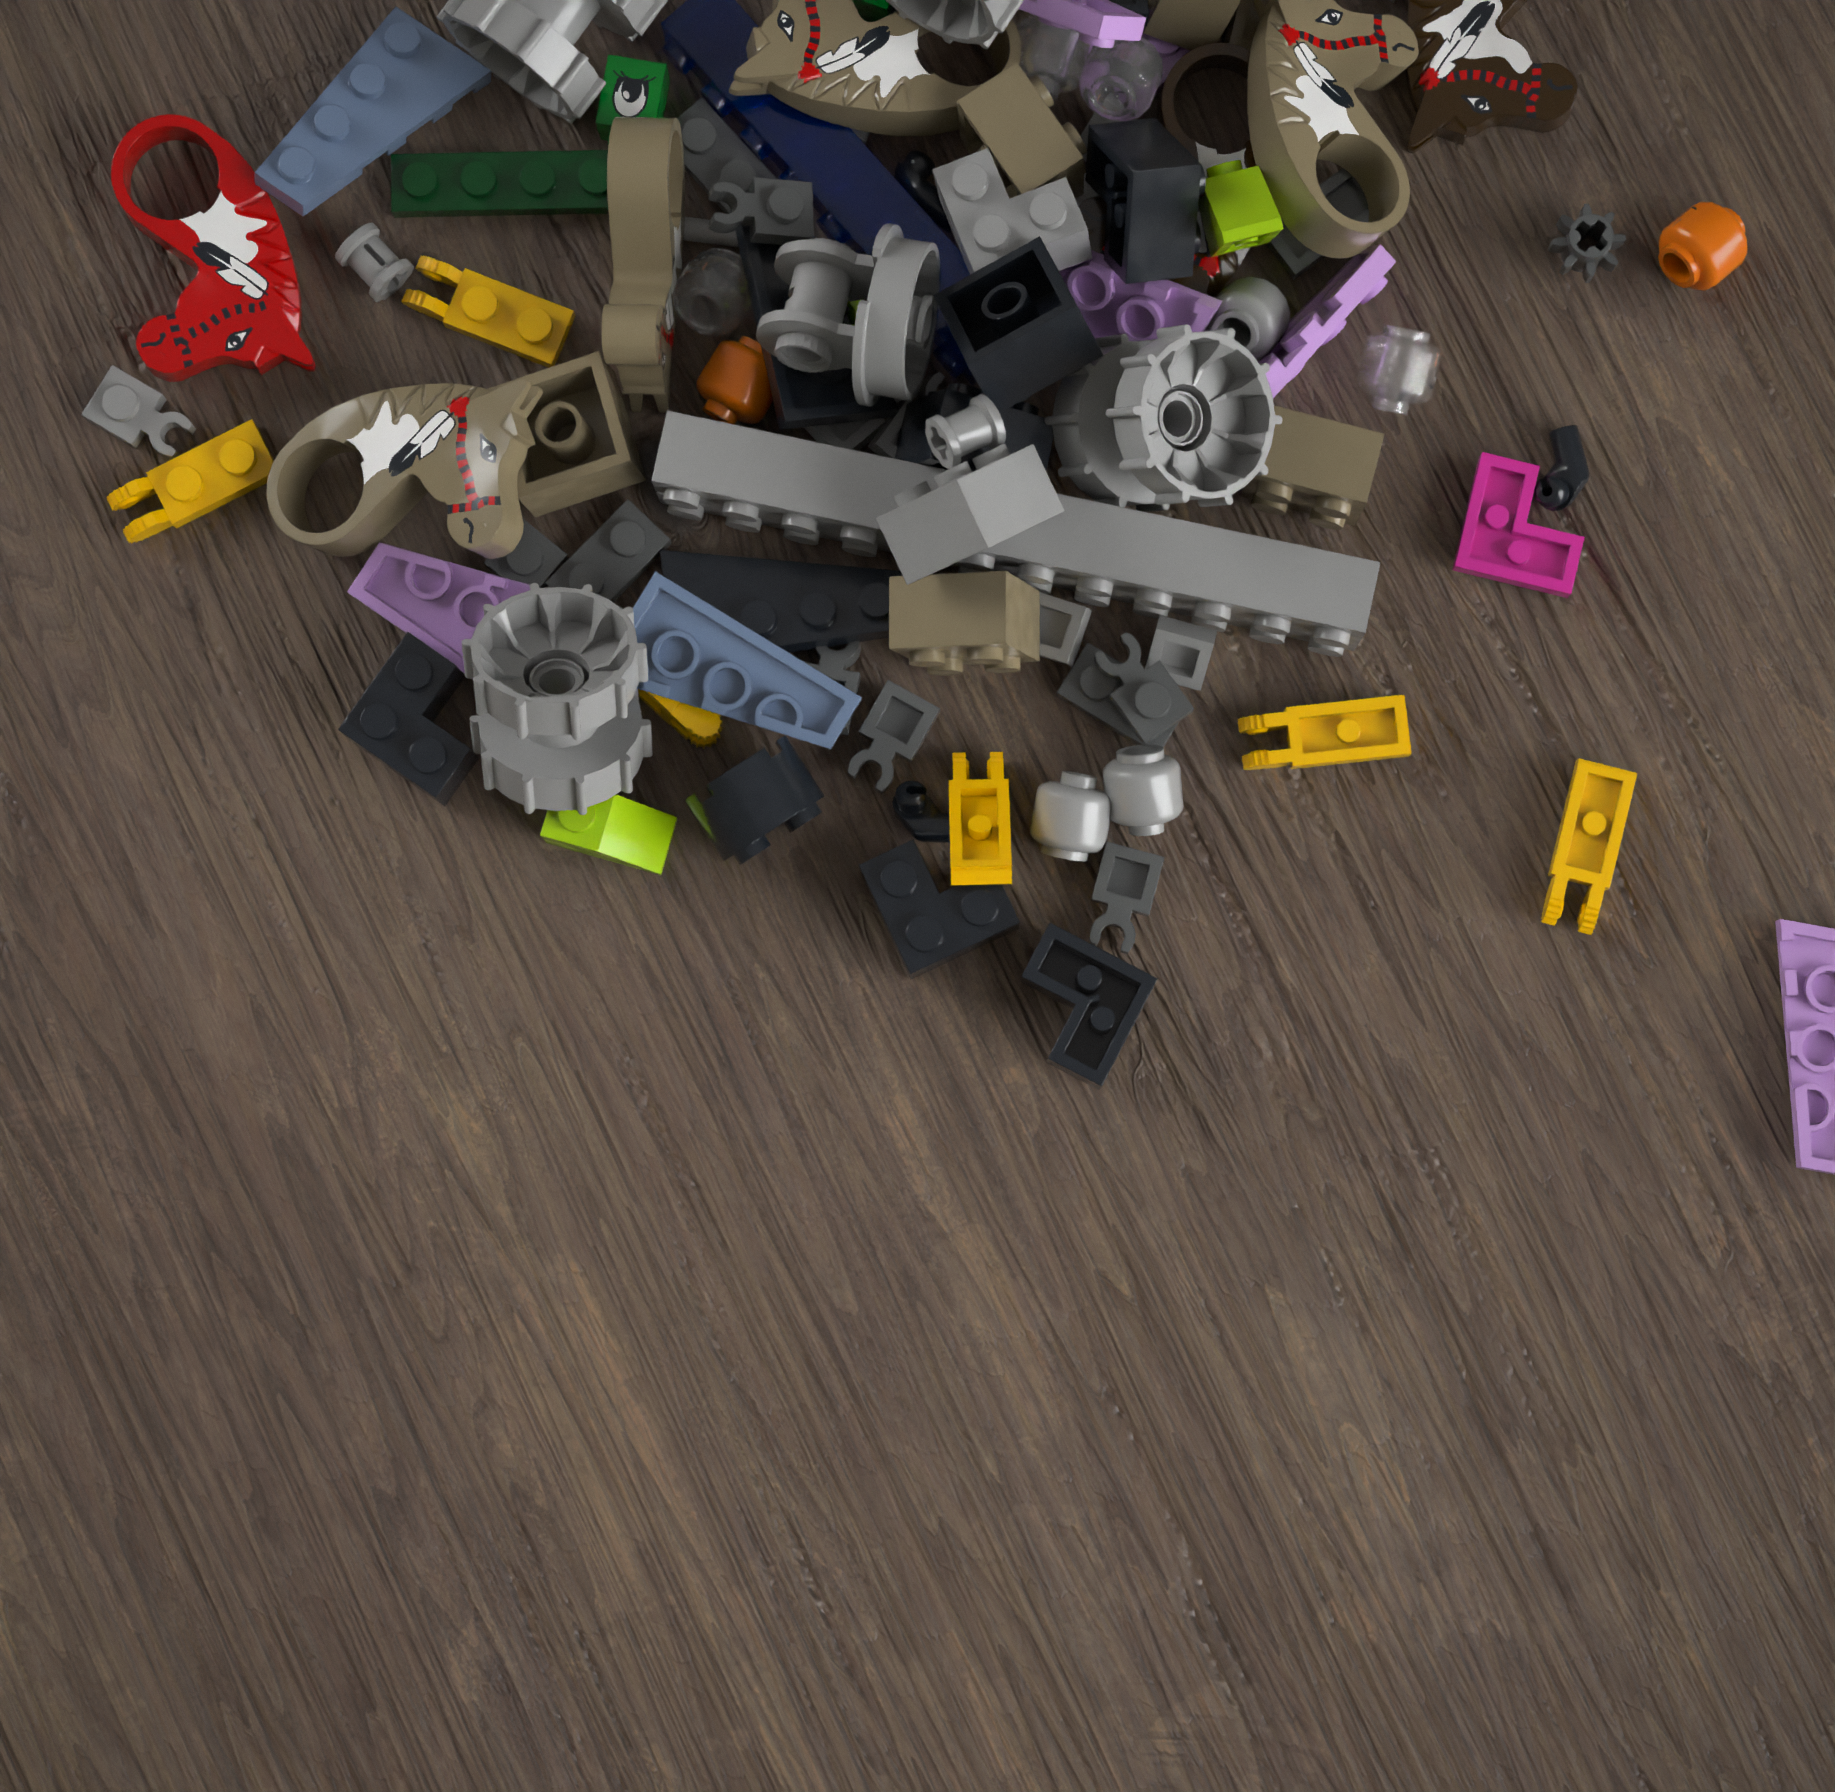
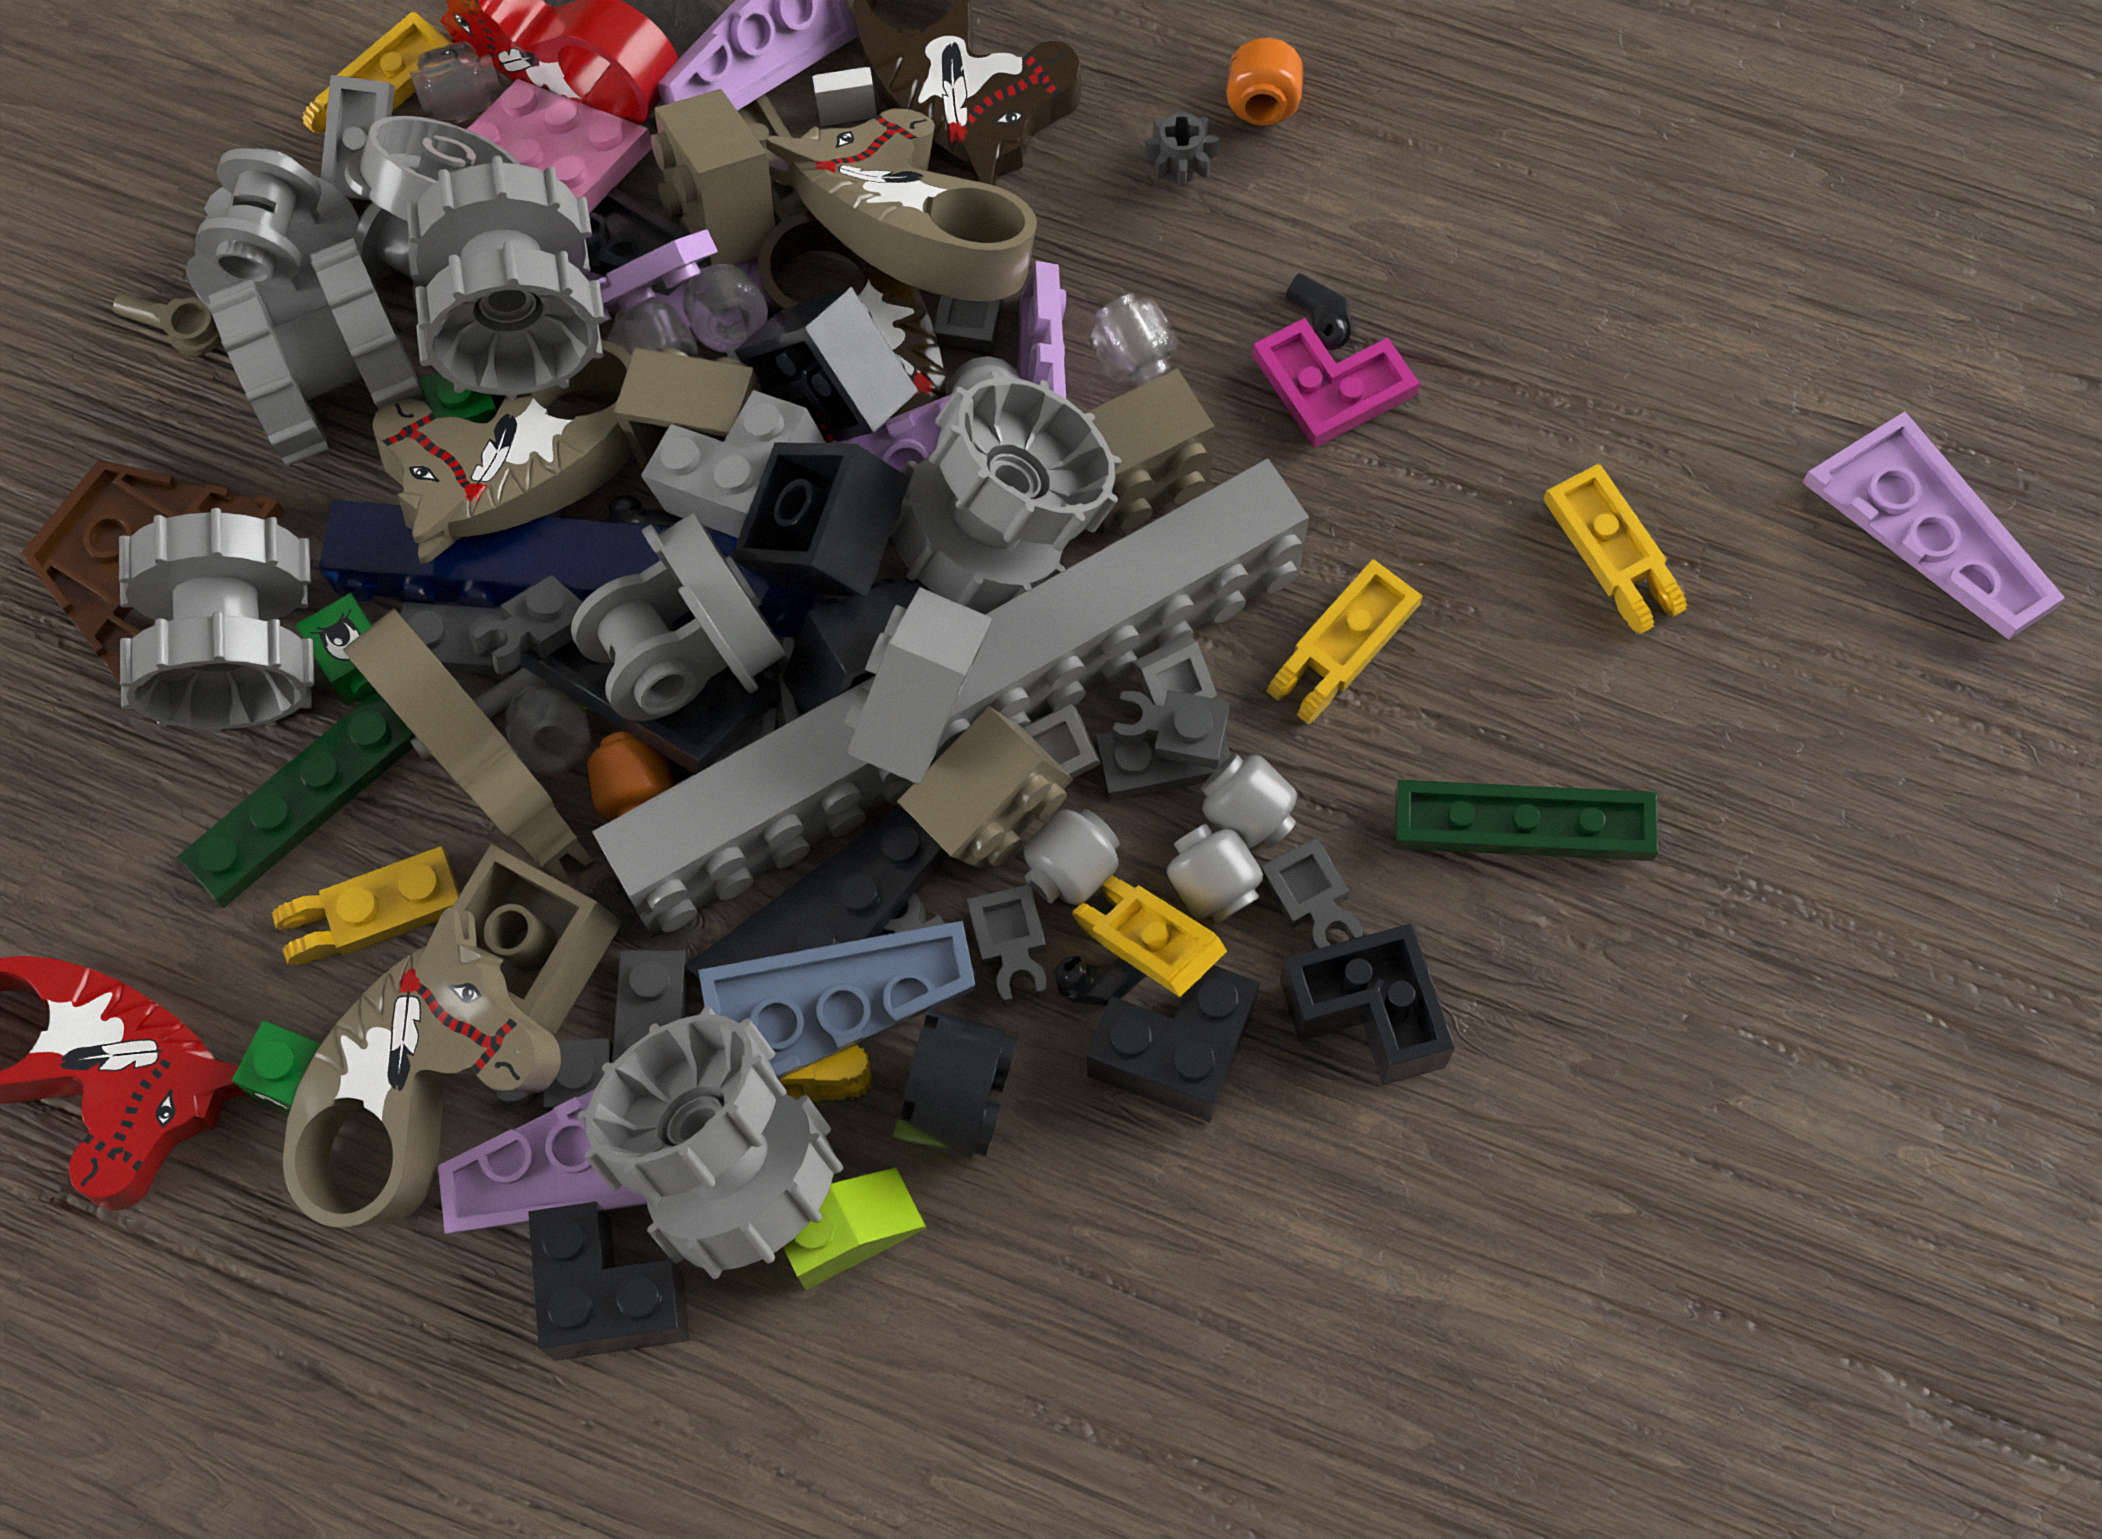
camera: 45 degrees left, 15 degrees down
(132, 411) = (119, 1255): light grey plate -> none
(197, 481) = (230, 1264): yellow hinge -> none
(333, 376) = (275, 1065): none -> green brick
(368, 110) = (123, 835): sand blue wing -> none
(374, 262) = (235, 951): light grey bush -> none
(965, 431) = (854, 628): light grey bush -> none
(985, 715) = (1071, 857): none -> light grey head
(1237, 209) = (913, 312): lime slope -> none
(1321, 977) = (1526, 820): none -> dark green plate

